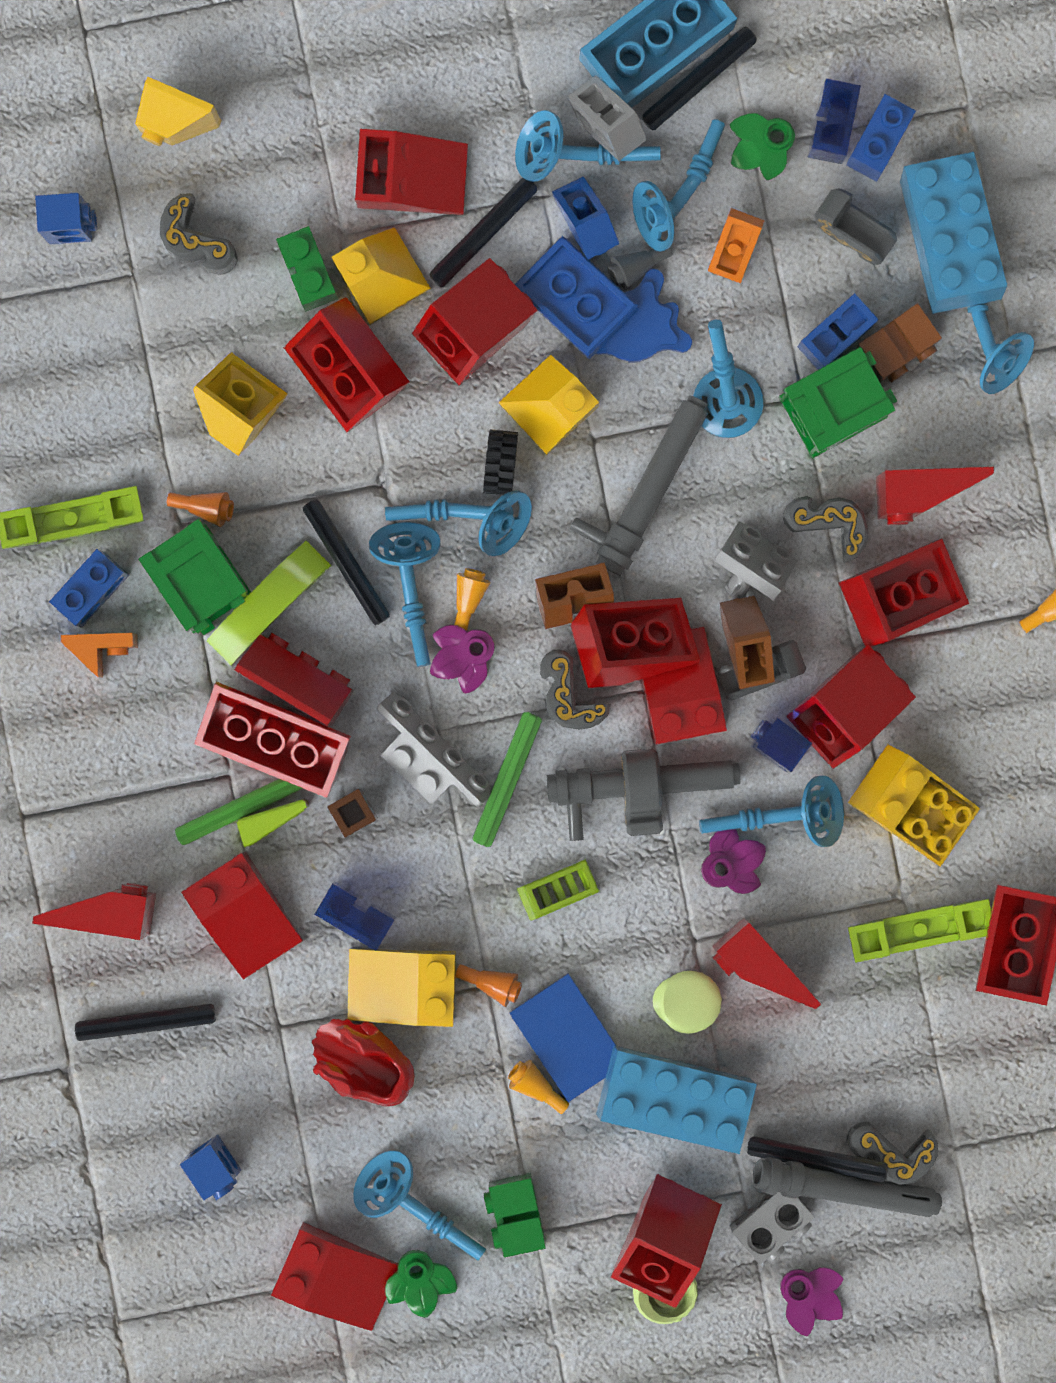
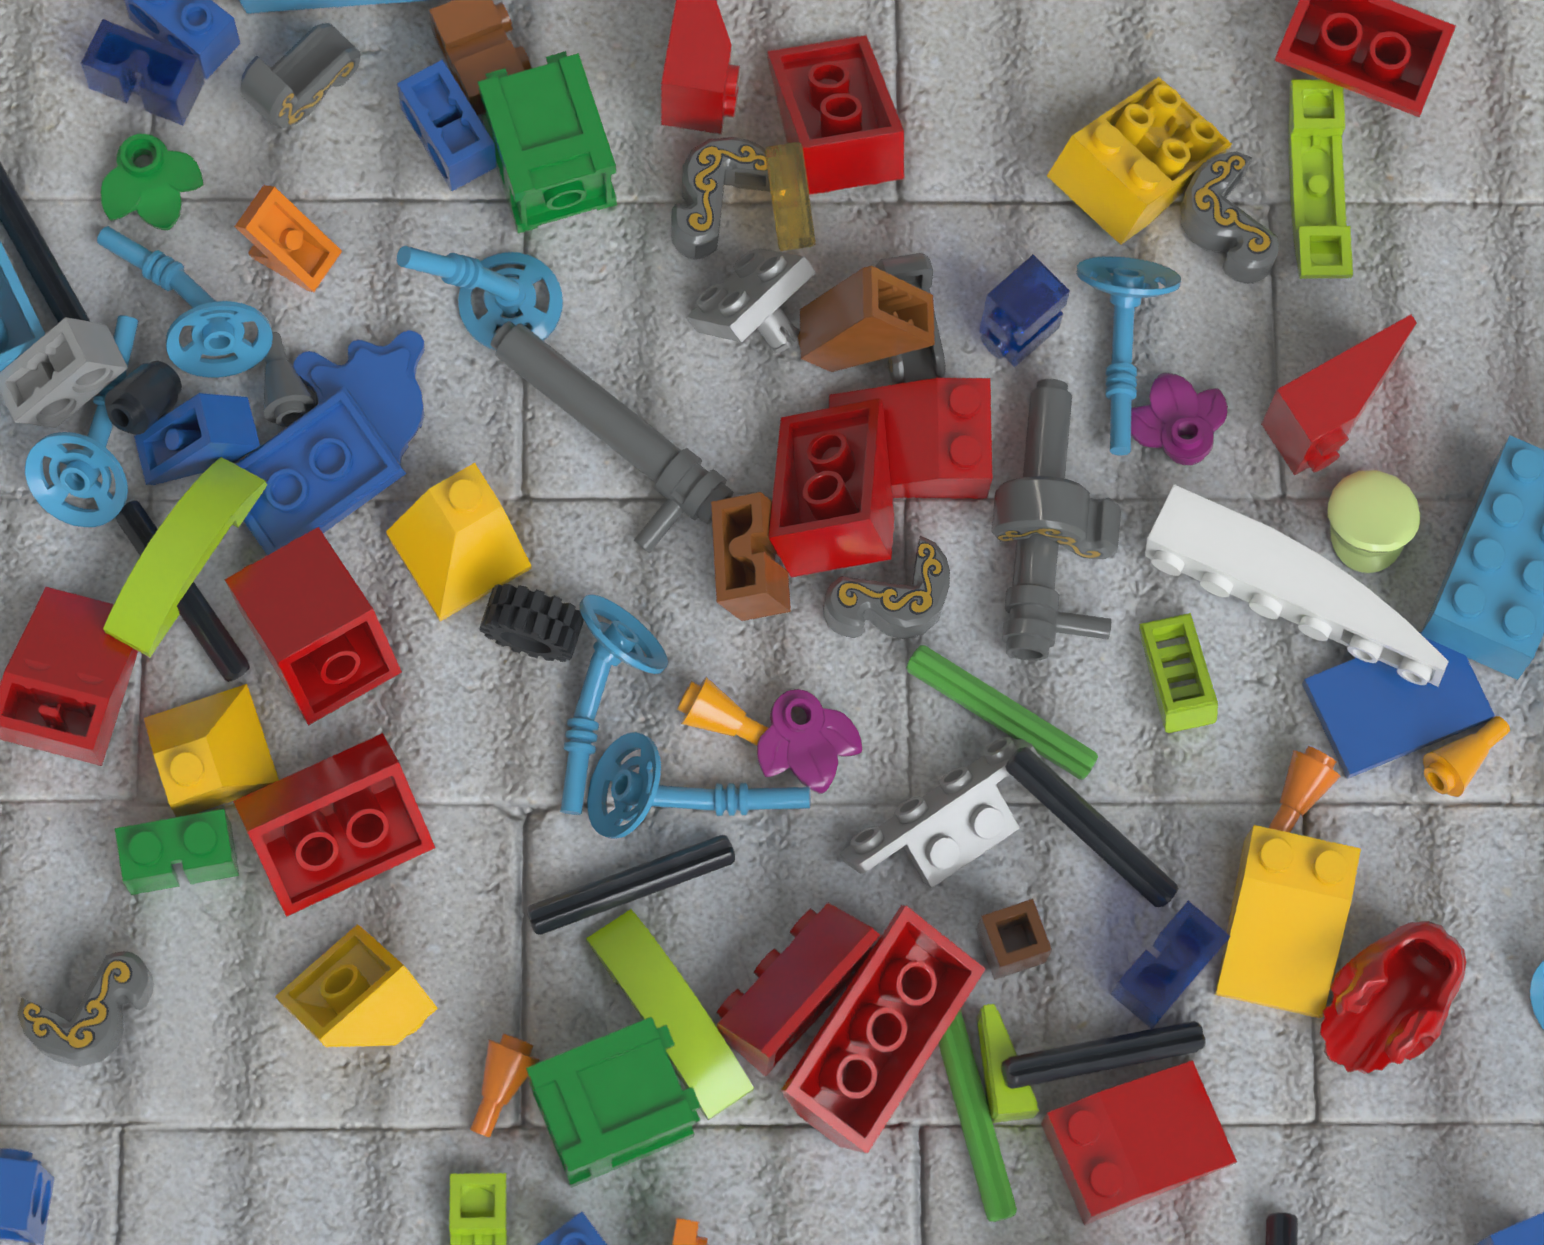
camera: 85 degrees left, 15 degrees down
(289, 882) = (1102, 1054): none -> black axle
(437, 850) = (1091, 827): none -> black axle
(503, 225) = (179, 552): none -> lime slope
(605, 175) = (143, 397): none -> black brick
(629, 947) = (1287, 581): none -> white slope
(830, 572) = (790, 196): none -> clear yellow slope
(851, 706) = (984, 208): red slope -> none
(875, 867) = (1222, 226): none -> dark grey animal

